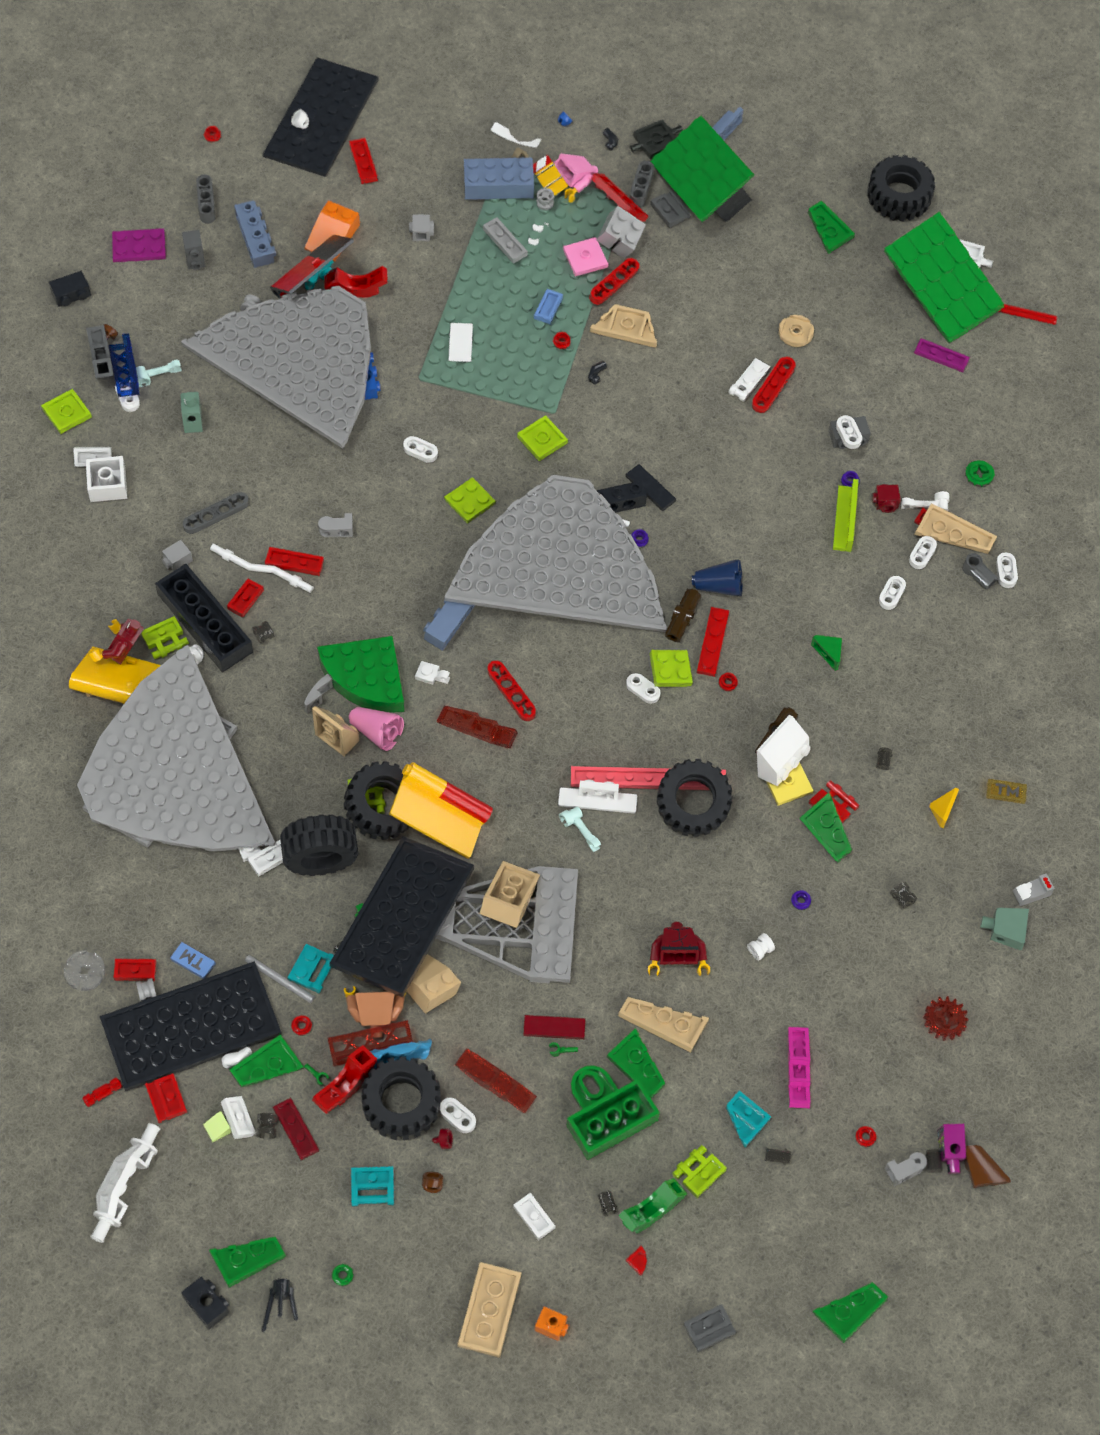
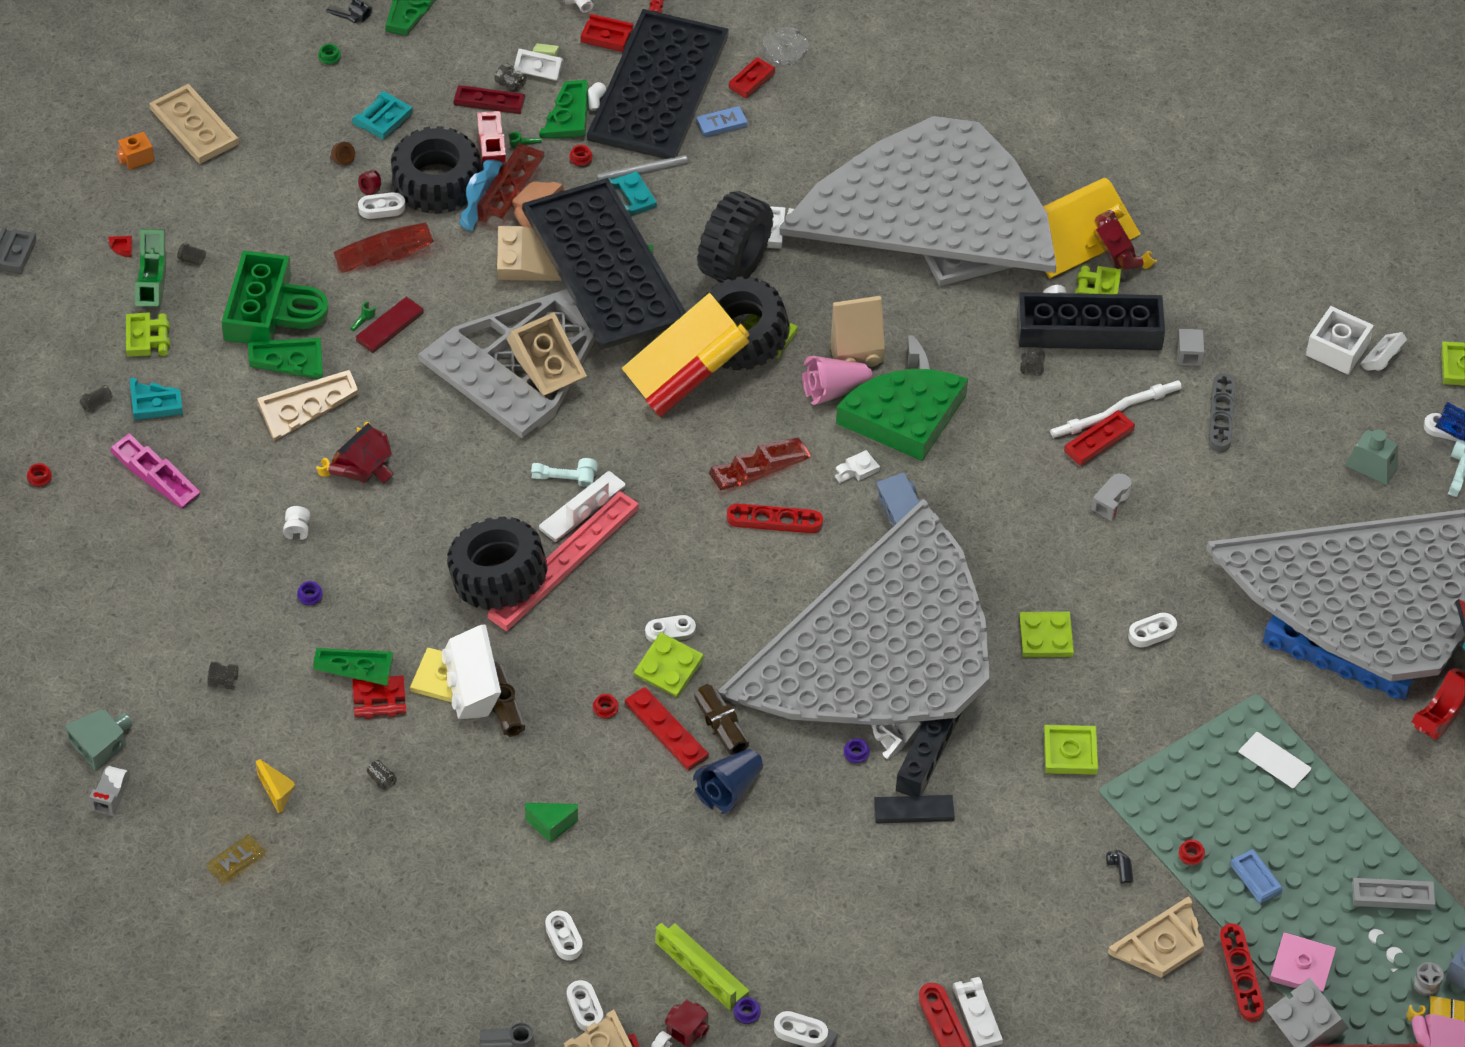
camera: 130 degrees right, 10 degrees down
(146, 989) = (723, 72): light grey wheel -> none
(245, 597) = (1089, 374): red plate -> none
(534, 1216) = (236, 199): white plate -> none
(954, 1015) = (70, 614): clear red gear -> none

